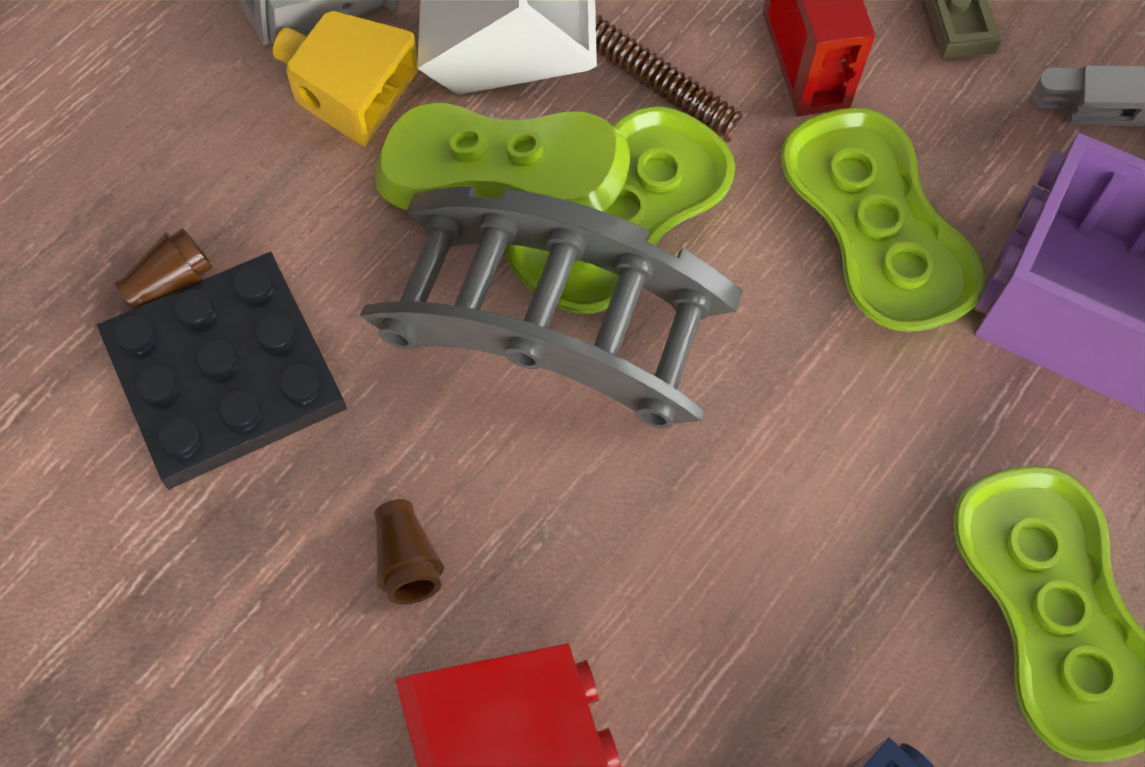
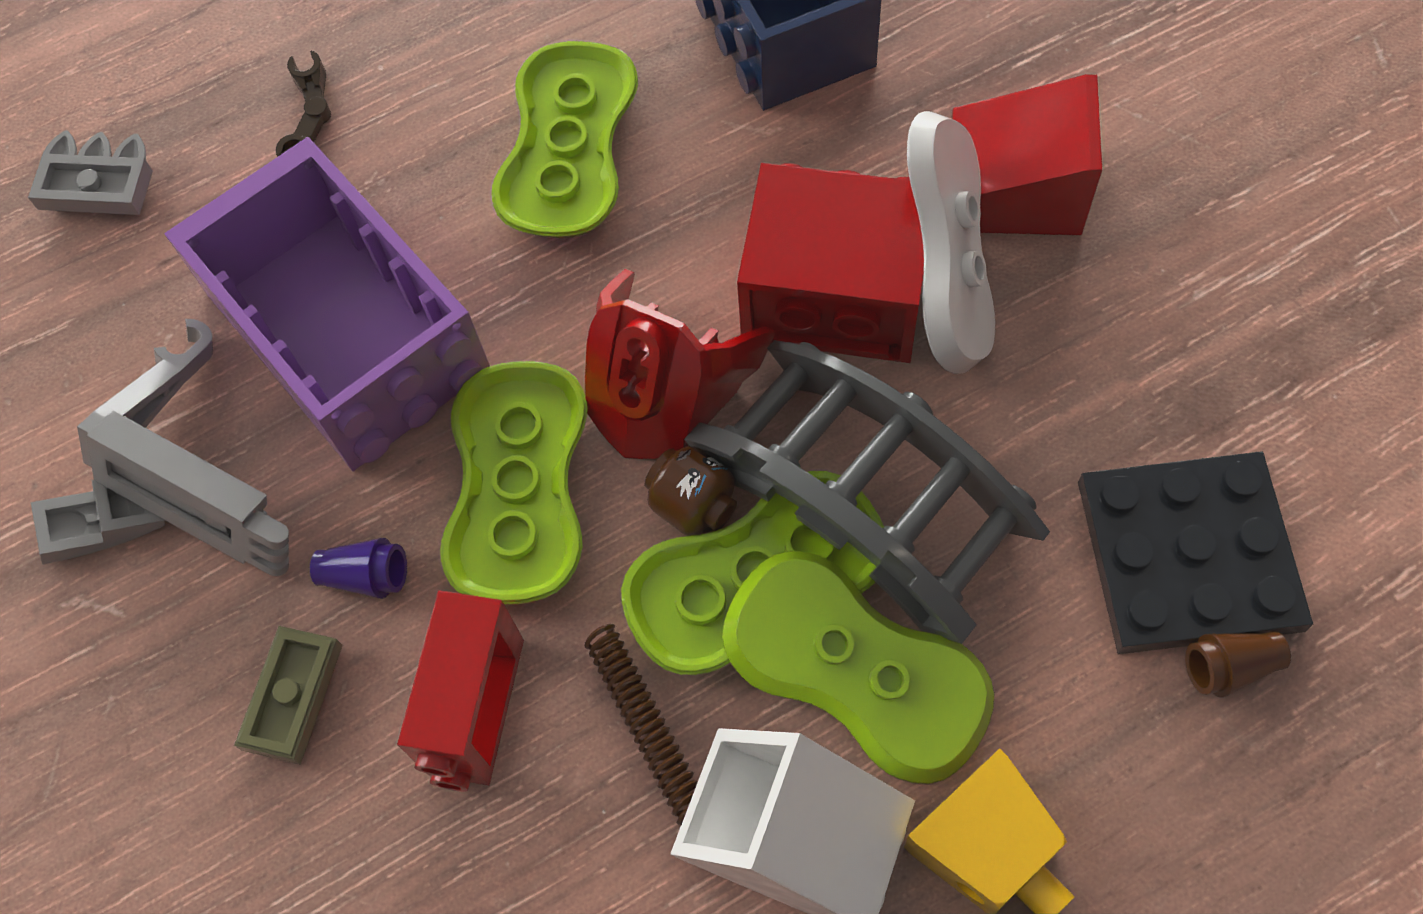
camera: 150 degrees left, 0 degrees up
(405, 557) = (1059, 326): reddish brown cone -> none
(559, 554) = (955, 280): none -> white plate
(674, 514) = (833, 261): none -> red container
(718, 241) = (691, 490): none -> reddish brown head
(846, 328) = (652, 375): none -> red piece
(964, 108) = (361, 568): none -> dark purple cone

